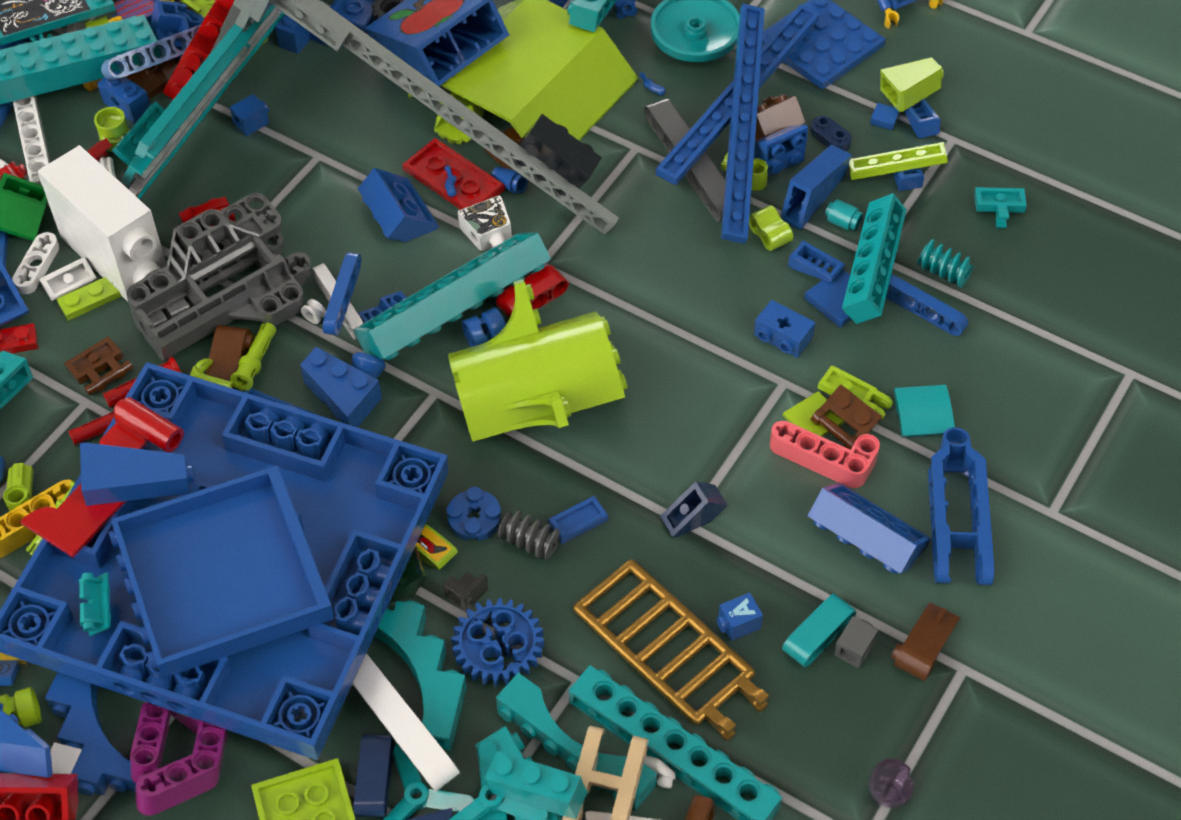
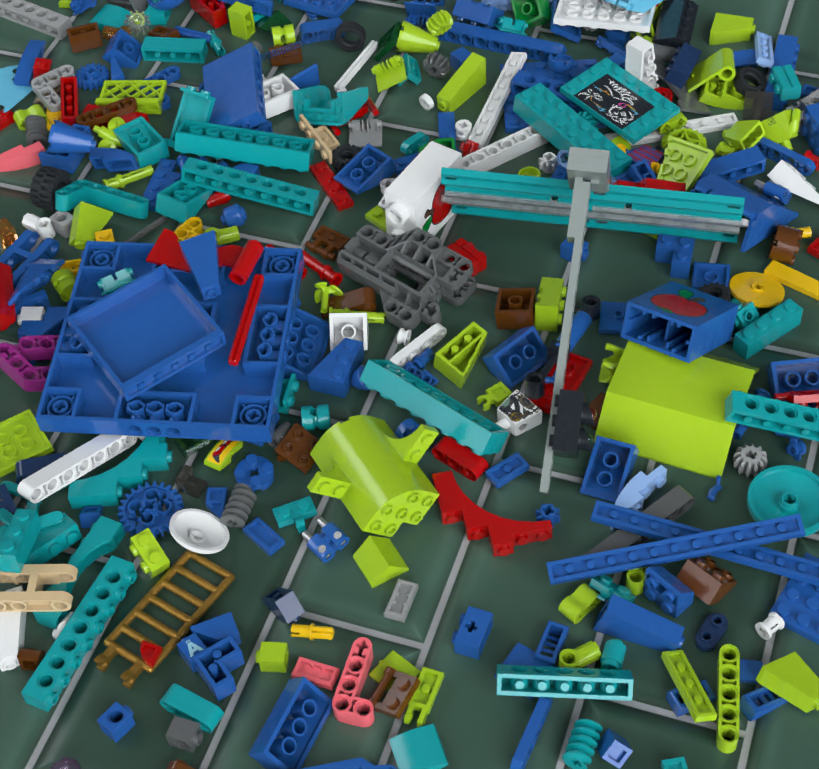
camera: 80 degrees right, 5 degrees down
(83, 104) = (548, 162): none -> white gear
(251, 445) = (246, 319): none -> red axle
(279, 367) = (348, 326): none -> white slope
(325, 186) = (515, 308): none -> reddish brown brick
(329, 154) = (550, 304): none -> lime wedge
(342, 293) = (384, 342): blue beam -> none
(360, 301) = (421, 360): none -> blue pin
(375, 104) = (612, 317): none -> blue plate
(383, 260) = (460, 354): none -> lime wedge
(414, 423) = (315, 417): none -> teal wheel
(418, 155) = (582, 320): none -> black piece
(449, 239) = (494, 395): none -> lime plate
(462, 455) = (297, 448): none -> reddish brown hinge
(476, 722) = (89, 515): none -> blue slope
(505, 565) = (216, 500): none -> blue tile
(554, 478) = (295, 513): none -> teal plate
(560, 582) = (198, 531): none -> white dish
(566, 252) = (507, 470): none -> blue plate
(578, 643) = (149, 553): none -> lime brick
(612, 447) = (327, 542): none -> blue piece
(617, 165) = (609, 468): none -> blue slope
(630, 43) = (750, 460): none -> light grey gear
(631, 296) = (479, 523): none -> red arch
(642, 151) = (640, 488): none -> light blue slope
(645, 229) = (548, 512): none -> blue gear
(657, 403) = (379, 560): none -> lime slope
(718, 583) = (216, 629): none -> blue slope
(719, 390) = (401, 600): none -> light grey plate
(733, 664) = (150, 653): none -> red tile
(740, 486) = (312, 631): none -> yellow axle
(767, 194) = (607, 588): none -> teal plate
(768, 530) = (273, 657): none -> lime brick
(775, 591) = (216, 664): none -> blue brick
(799, 492) = (316, 672): none -> coral plate
(826, 728) = (114, 729): none -> blue brick
(839, 243) = (580, 656): none -> lime piece
(840, 89) = (769, 625): none -> white bush
(905, 134) = (727, 707): none -> lime beam
(956, 238) = (614, 748): none -> blue panel

